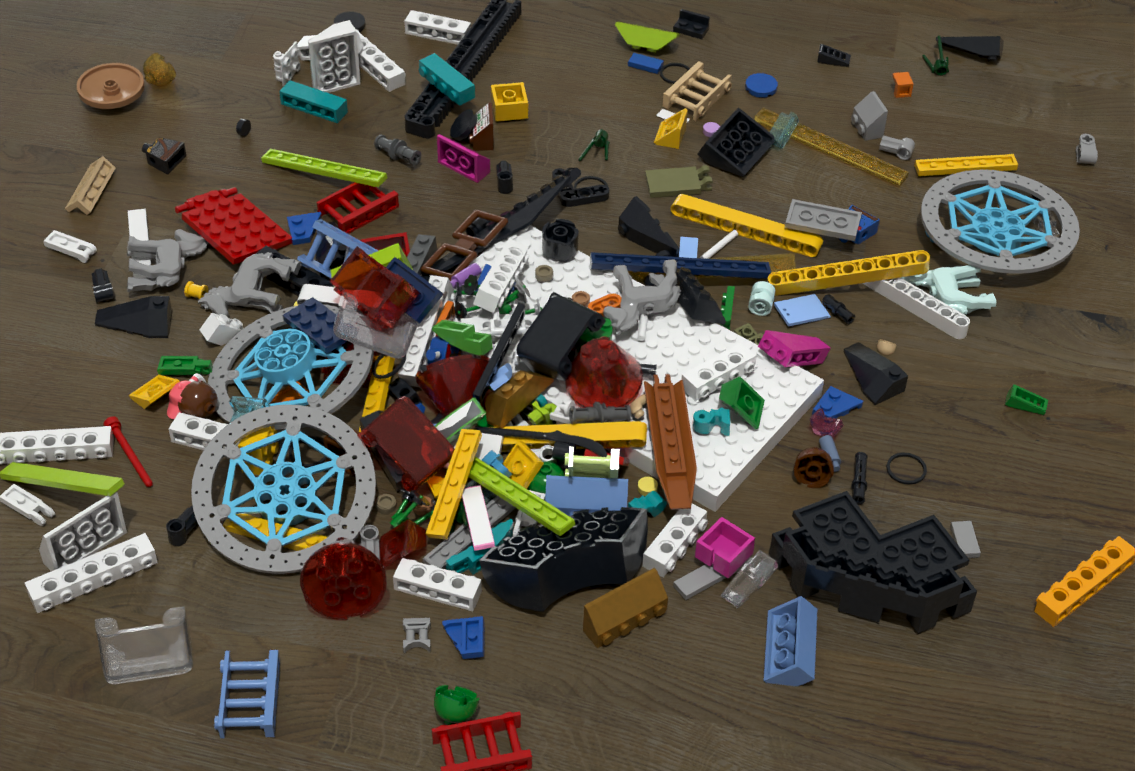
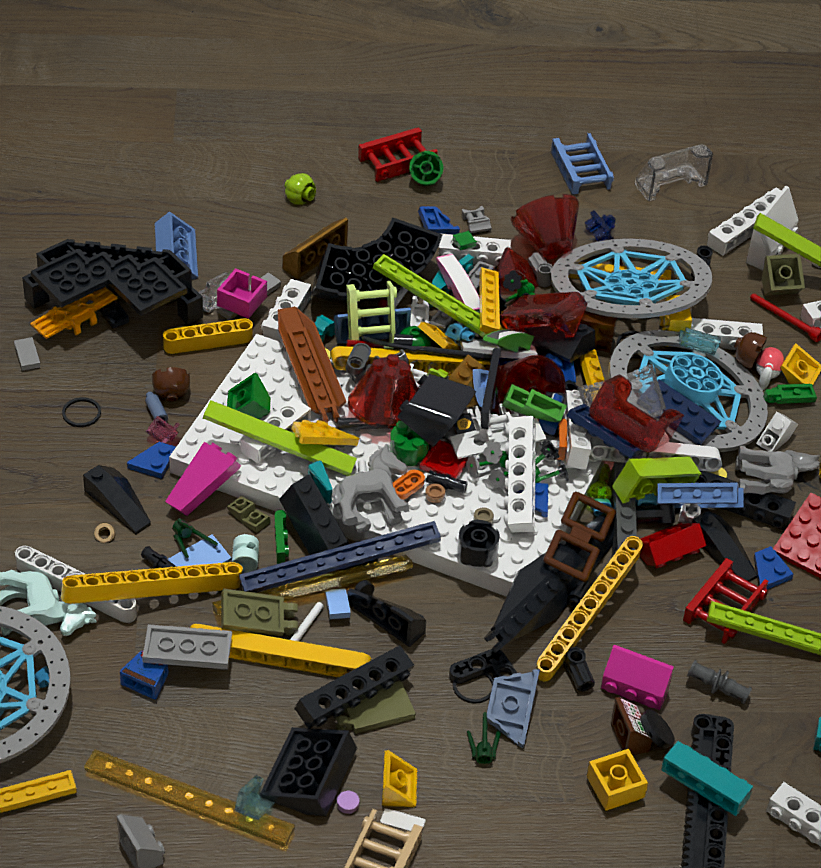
camera: 165 degrees right, 0 degrees up
(118, 470) = (782, 275): none -> olive slope
(269, 594) = (603, 225): none -> clear blue hips
(449, 577) = (464, 240): none -> green tile
(473, 269) = (562, 494): medium lavender cylinder -> none
(482, 199) = (586, 615): none -> yellow beam
(567, 157) = (512, 704): none -> sand blue wing
(619, 415) = (360, 356): none -> dark grey piece
(623, 711) = (300, 187): none -> lime plant
(636, 406) = (347, 386): tan arm -> none
(679, 349) = (322, 433): none -> yellow wing
(686, 319) = (321, 478): none -> teal slope
(691, 175) = (309, 705): none -> black brick
(705, 421) = (279, 382): teal leg -> none
(720, 346) = (278, 438): none -> lime tile
(760, 242) = (257, 613): none -> olive tile
(760, 520) = (208, 336): none -> yellow beam
(814, 328) = (185, 530): none -> dark green plant
(859, 493) = (126, 374): black pin -> none
(902, 148) = (93, 810): light grey piece -> none

